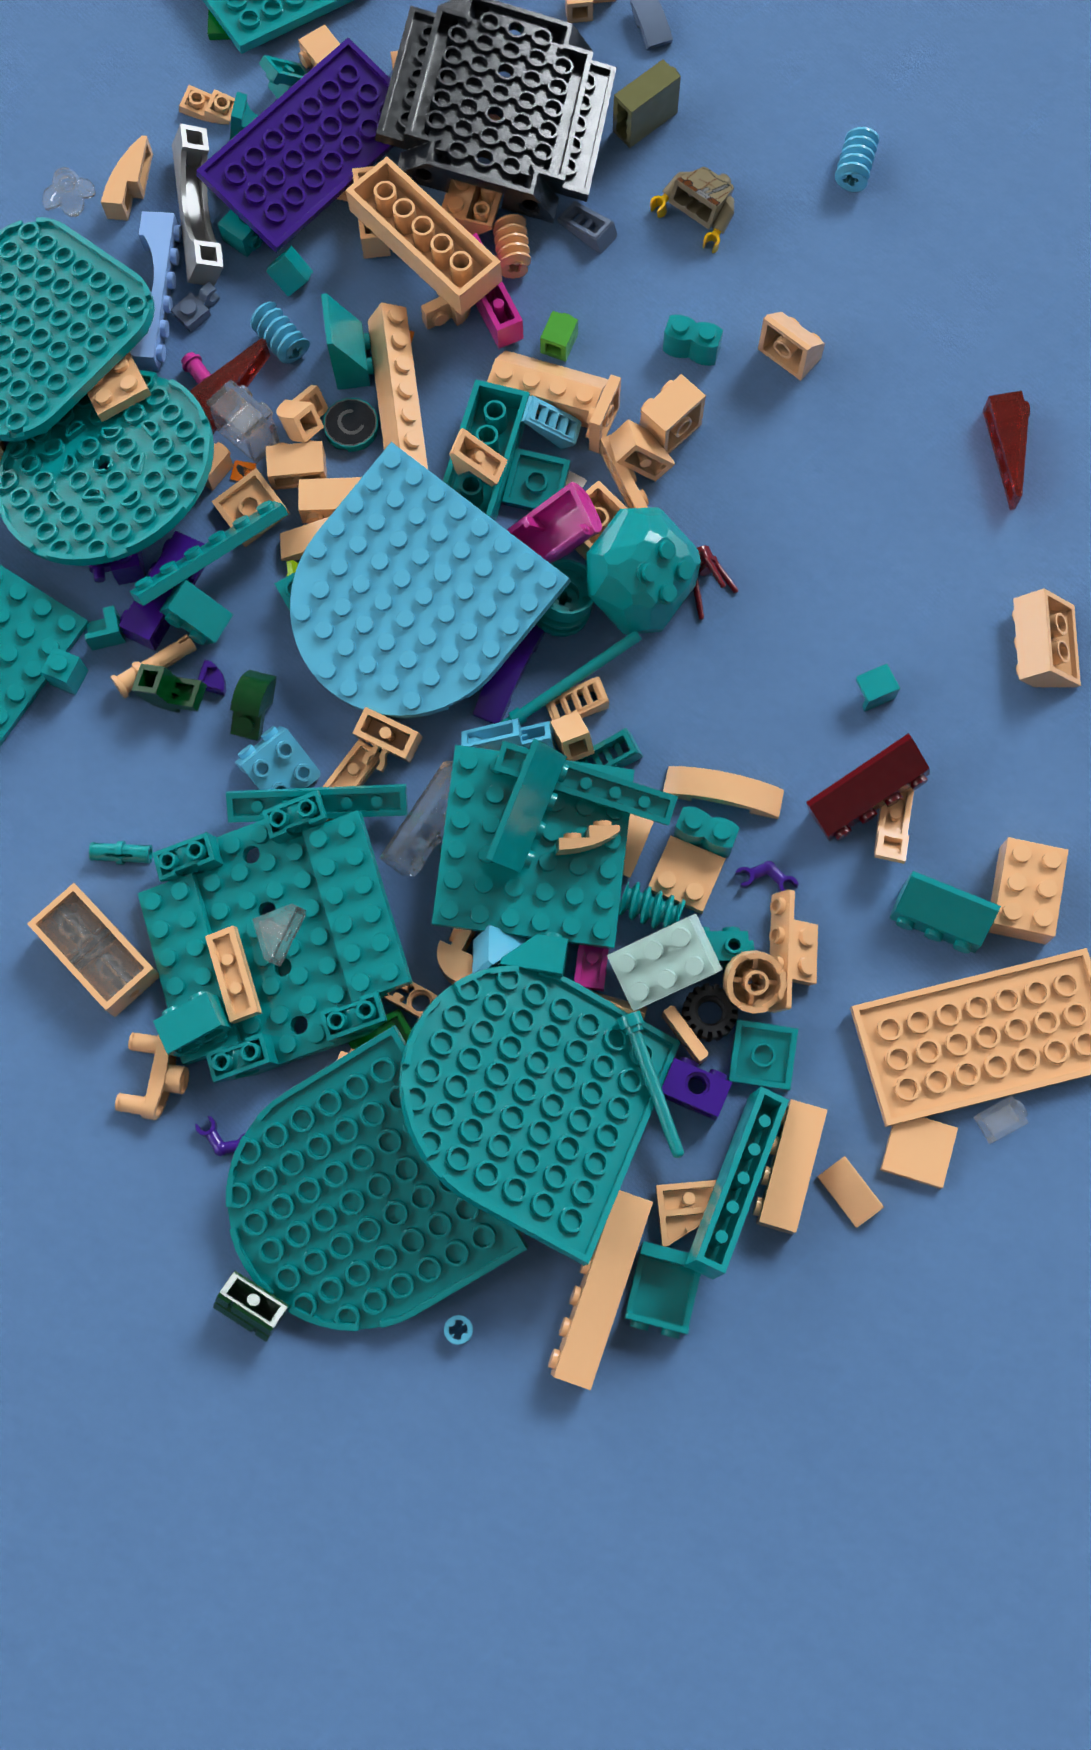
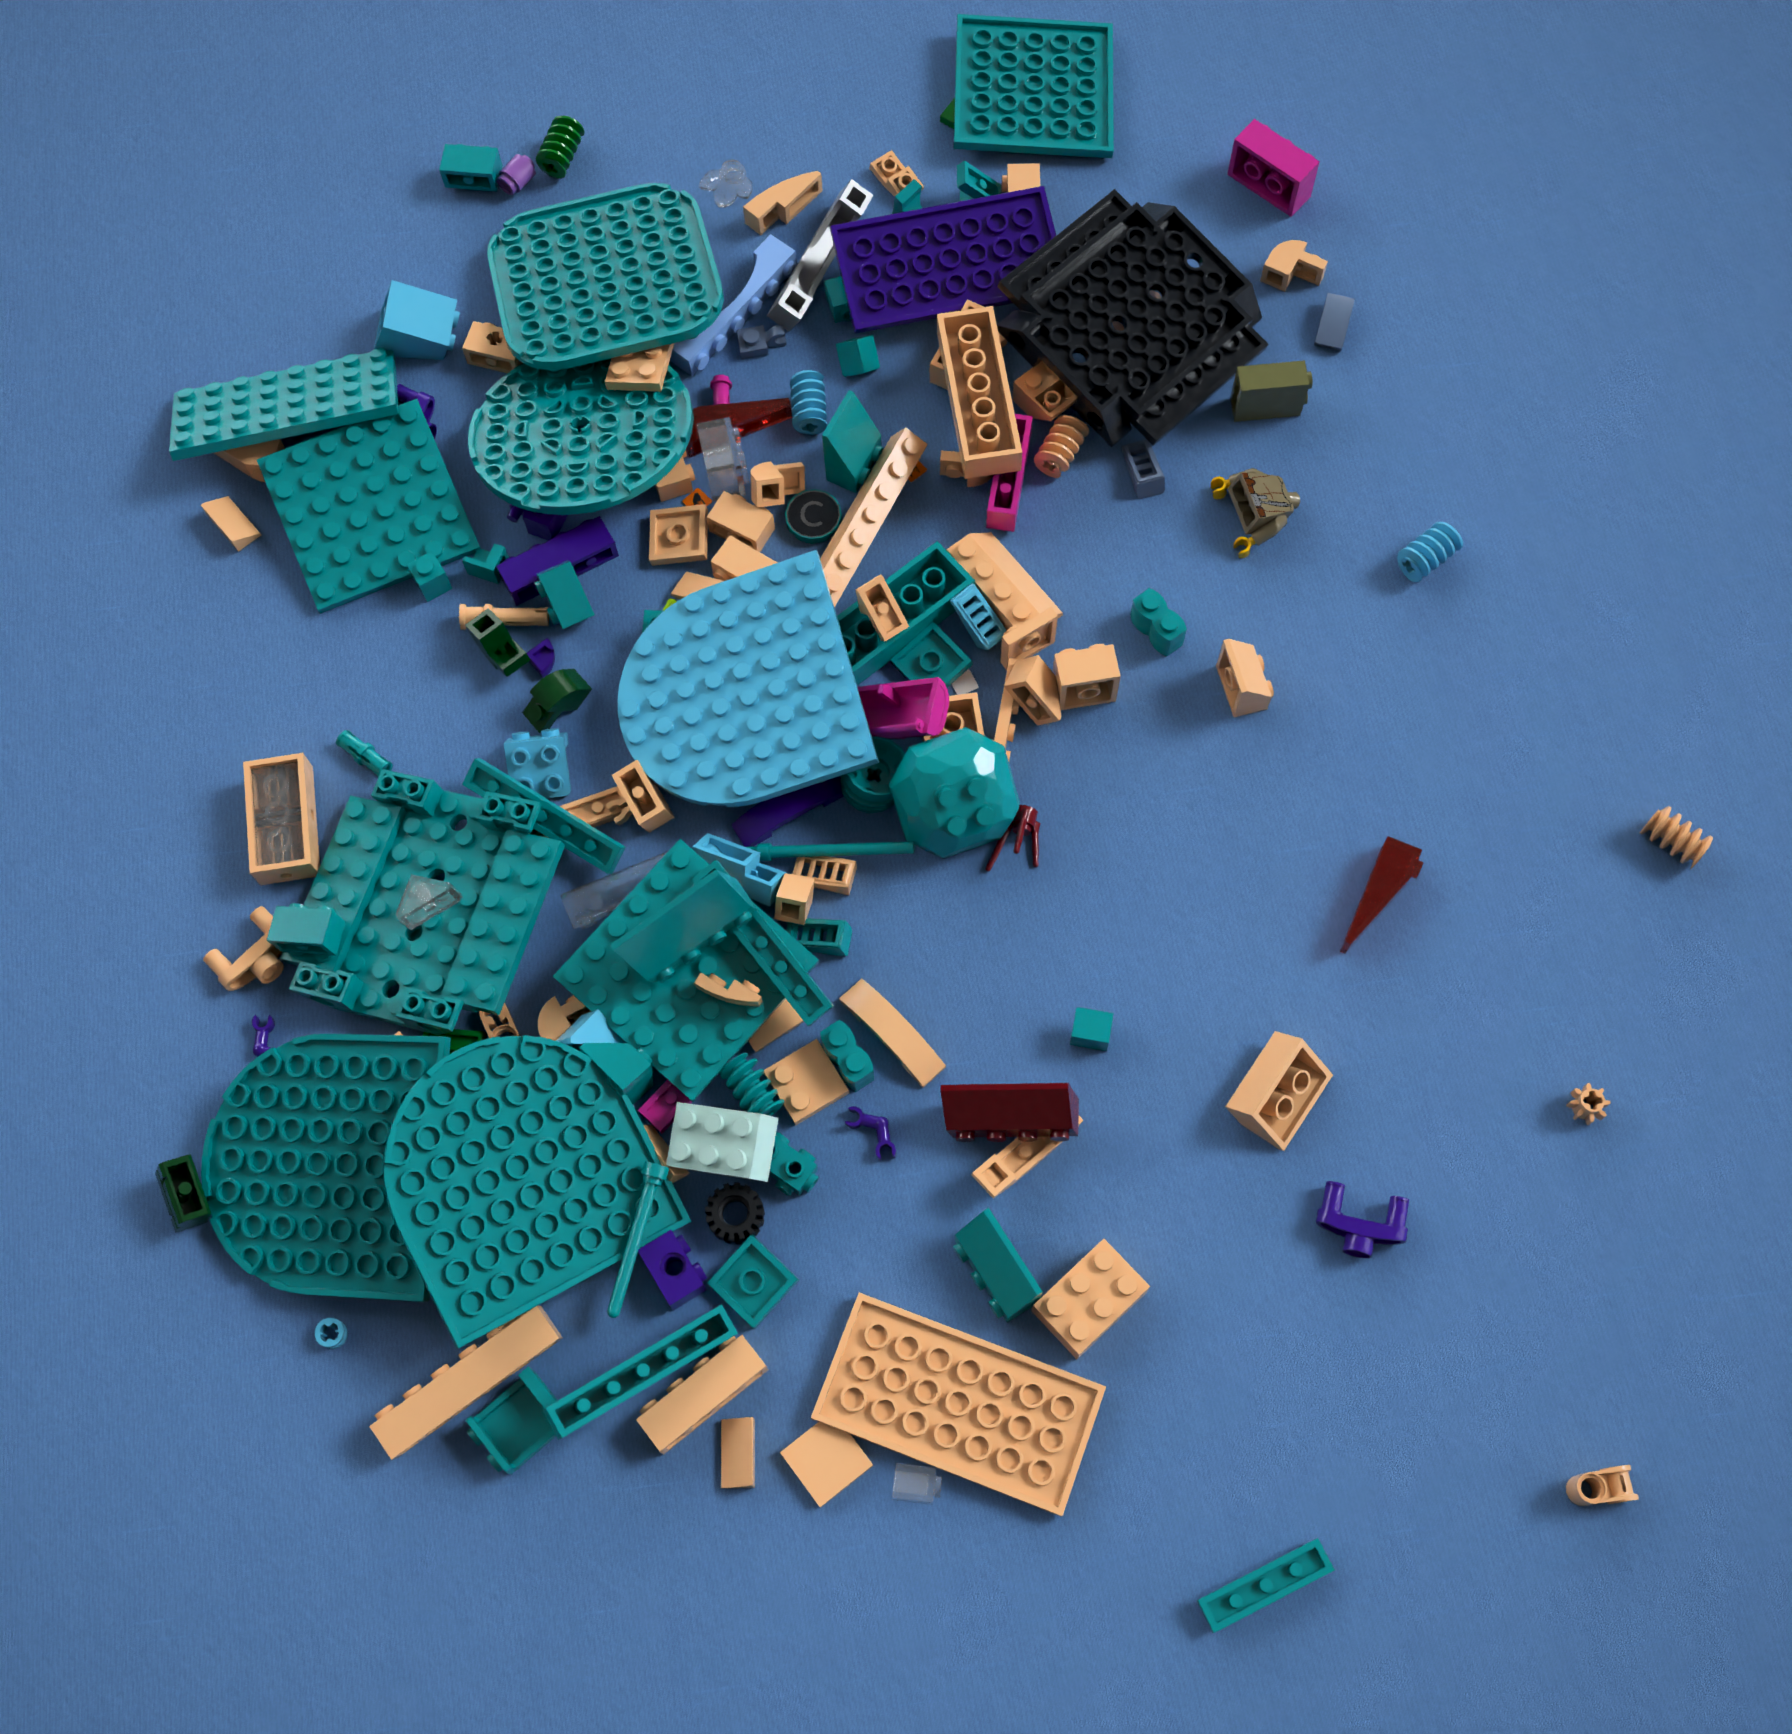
camera: 35 degrees right, 5 degrees down
(199, 557) = (595, 549): teal plate -> none
(233, 974) = (368, 911): light nougat plate -> none
(559, 335) = (1045, 547): bright green brick -> none
(681, 1208) = (582, 1362): light nougat wing -> none
(685, 1034) = (699, 1201): light nougat tile -> none
(754, 981) = (783, 1210): light nougat cylinder -> none
(792, 945) = (844, 1211): light nougat bracket -> none

